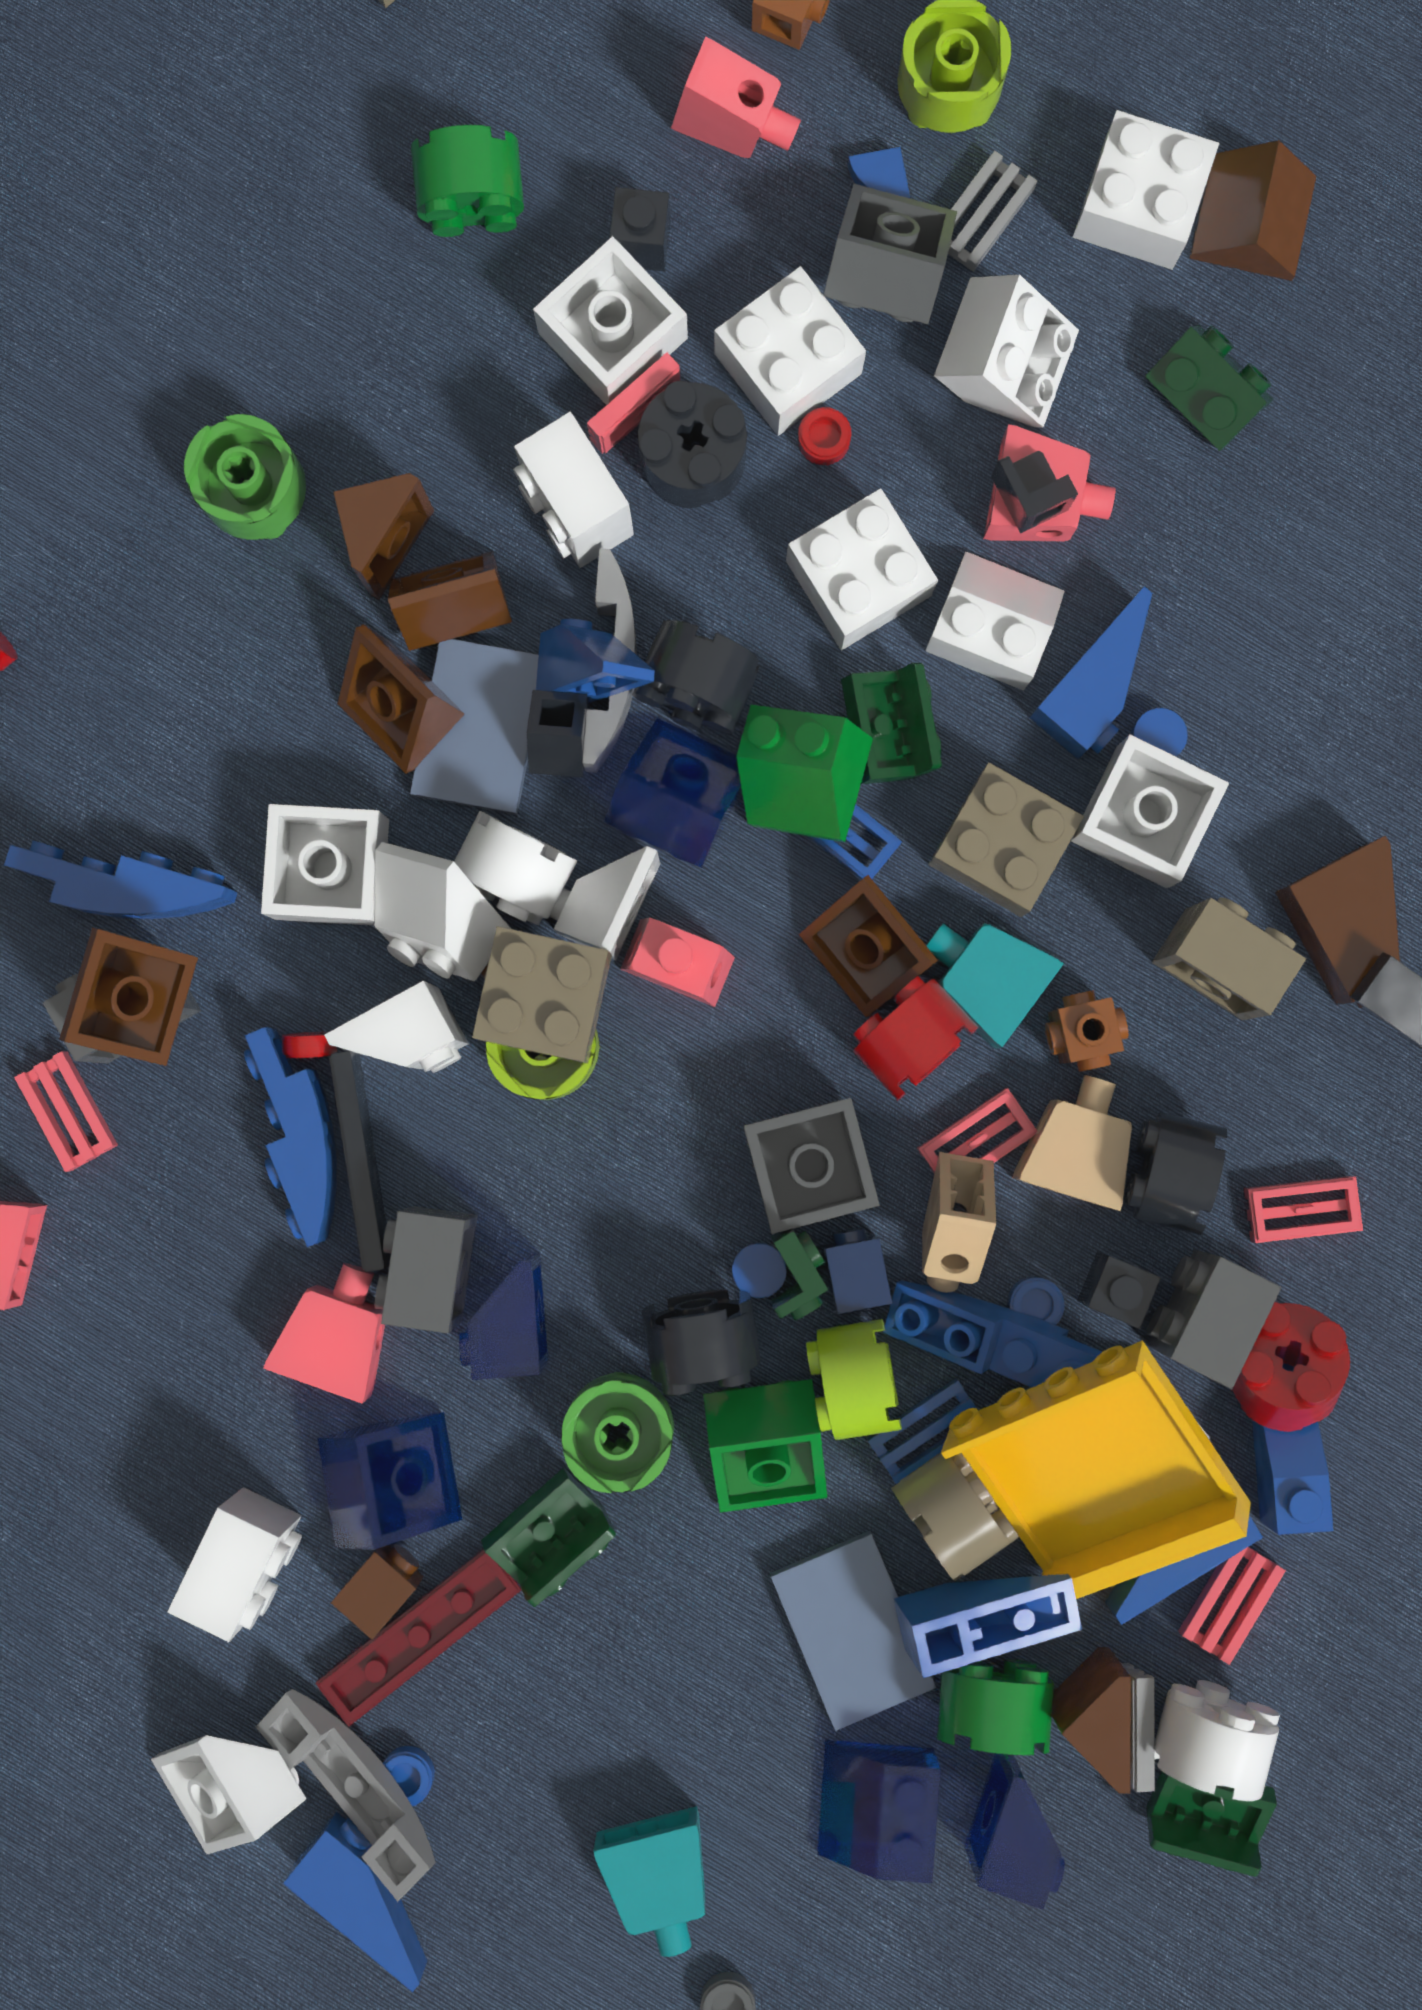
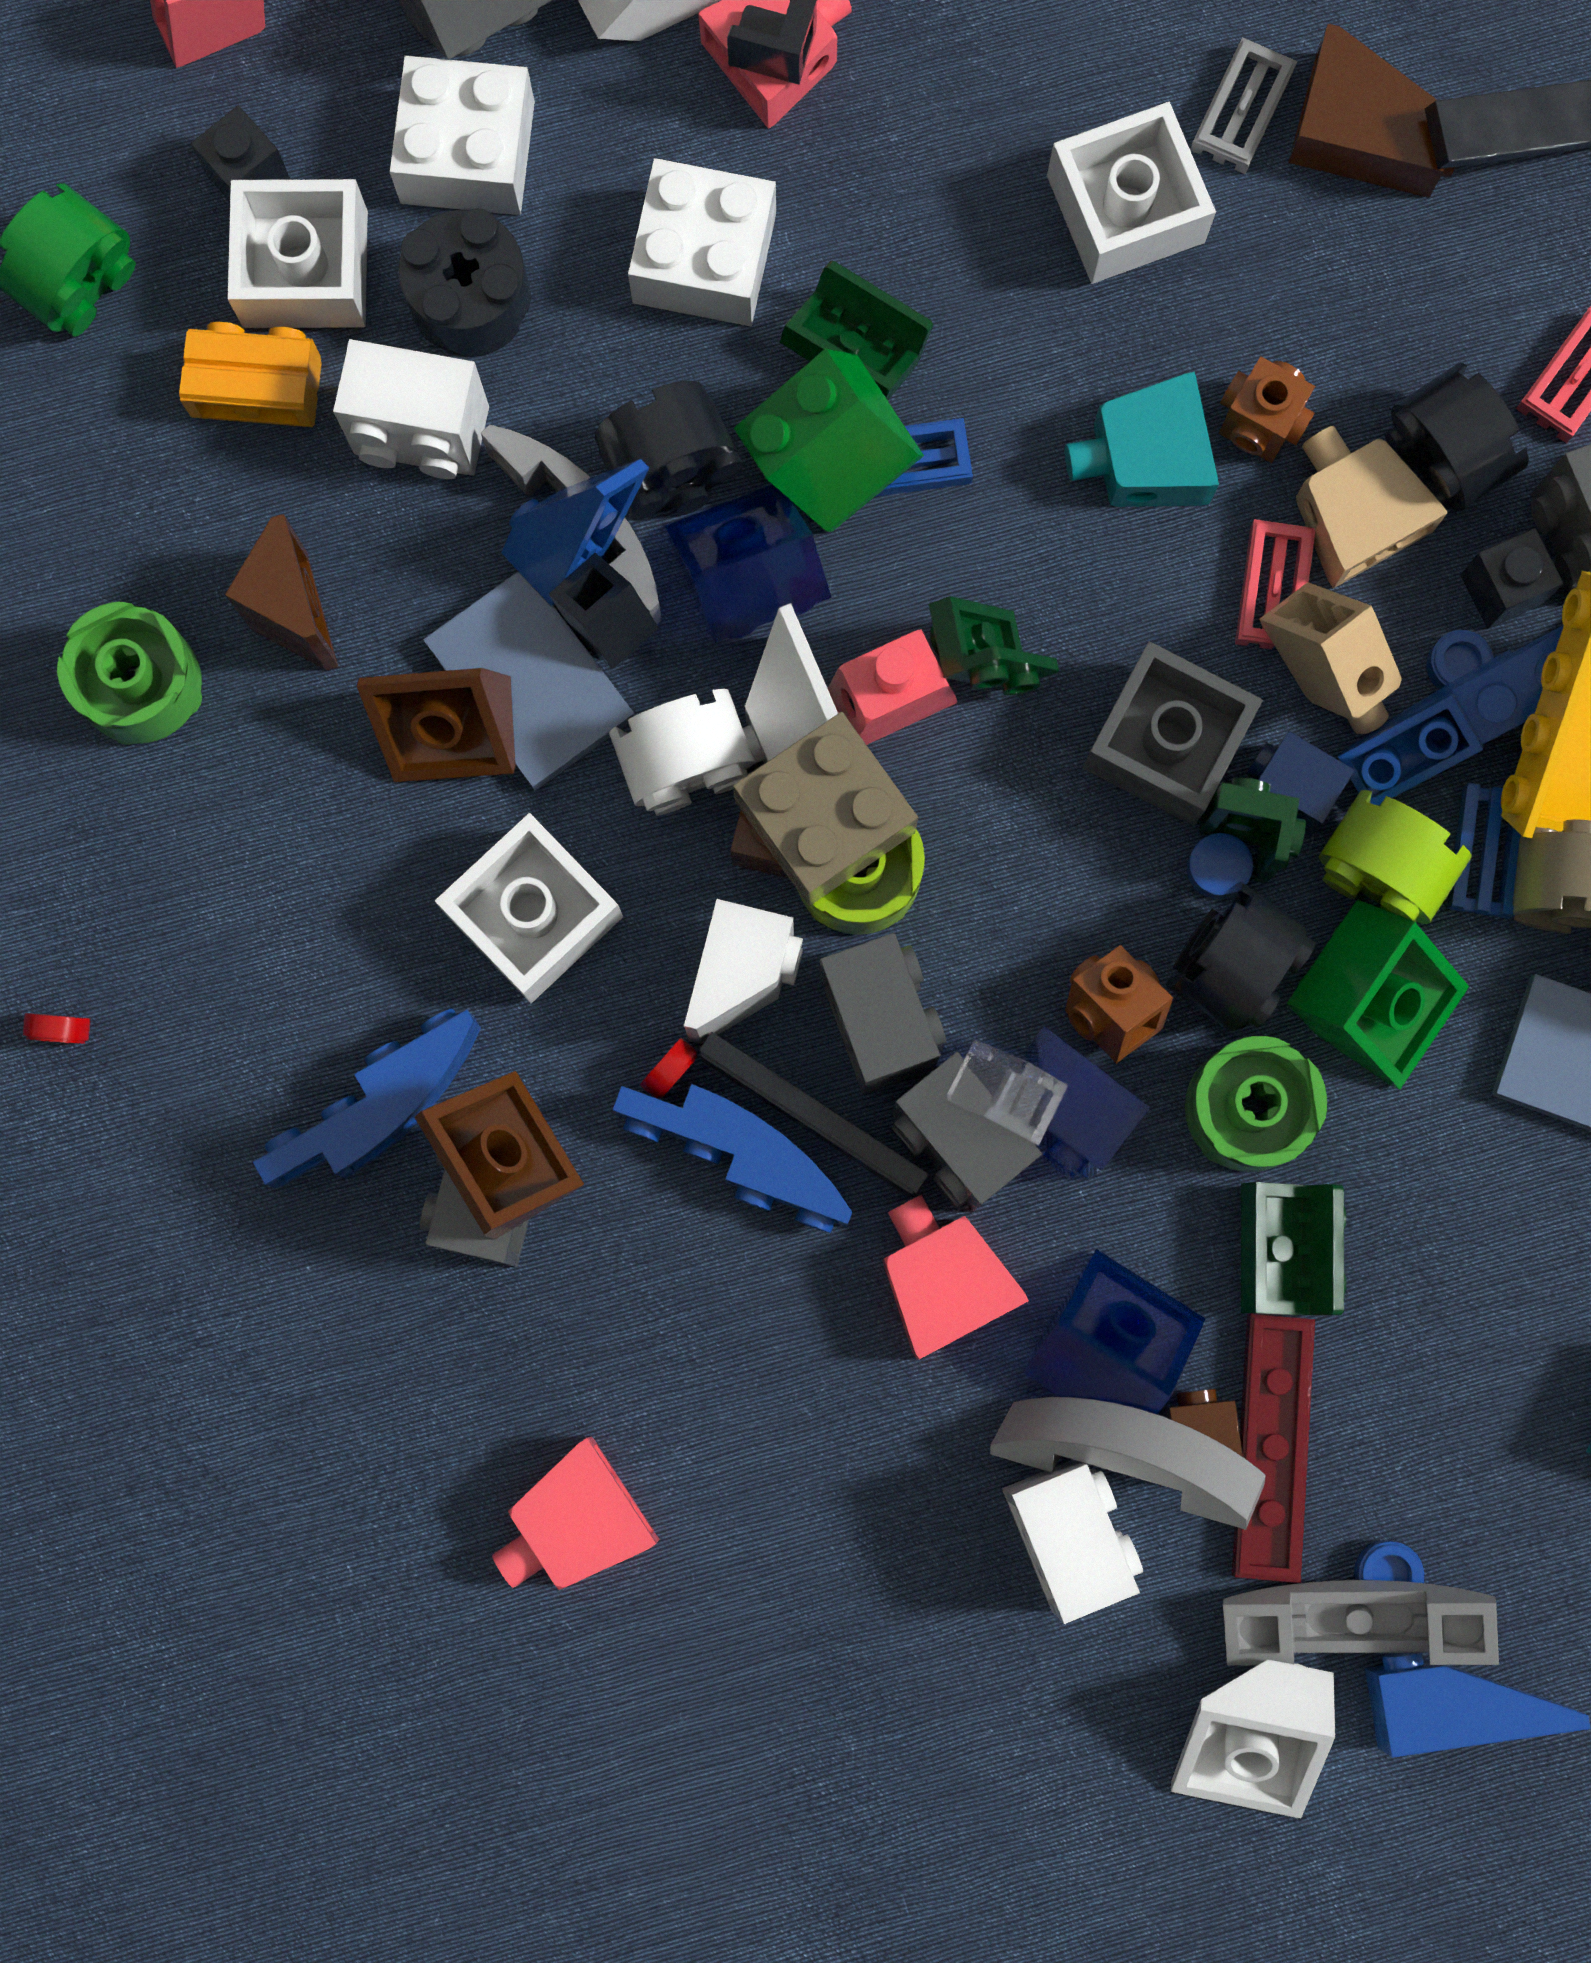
camera: 50 degrees left, 5 degrees down
(48, 1122) = (473, 1326): coral tile -> none
(326, 1554) = (1137, 1444): none -> light grey slope
(432, 913) = (661, 844): white slope -> none
(449, 601) = (402, 599): reddish brown slope -> none
(456, 1147) = (880, 1013): none -> dark grey brick
(462, 1276) = (1007, 1091): none -> clear panel
(508, 369) = (250, 375): none -> light orange brick
(604, 1286) = (1117, 1002): none -> dark orange brick
(627, 408) = (382, 289): coral tile -> none
(754, 995) = (984, 647): none -> dark green bracket
(824, 436) = (558, 176): red tile -> none
(867, 946) = (1028, 520): reddish brown slope -> none
(913, 1036) = (1145, 549): red brick -> none
(996, 621) = (851, 178): white slope -> none
(1006, 840) = (1044, 330): dark tan brick -> none
(1096, 688) = (983, 142): blue slope -> none
(1162, 729) = (1064, 122): blue tile -> none
(1230, 958) = (1315, 236): dark tan brick -> none
(1242, 843) = (1224, 148): none -> light grey tile

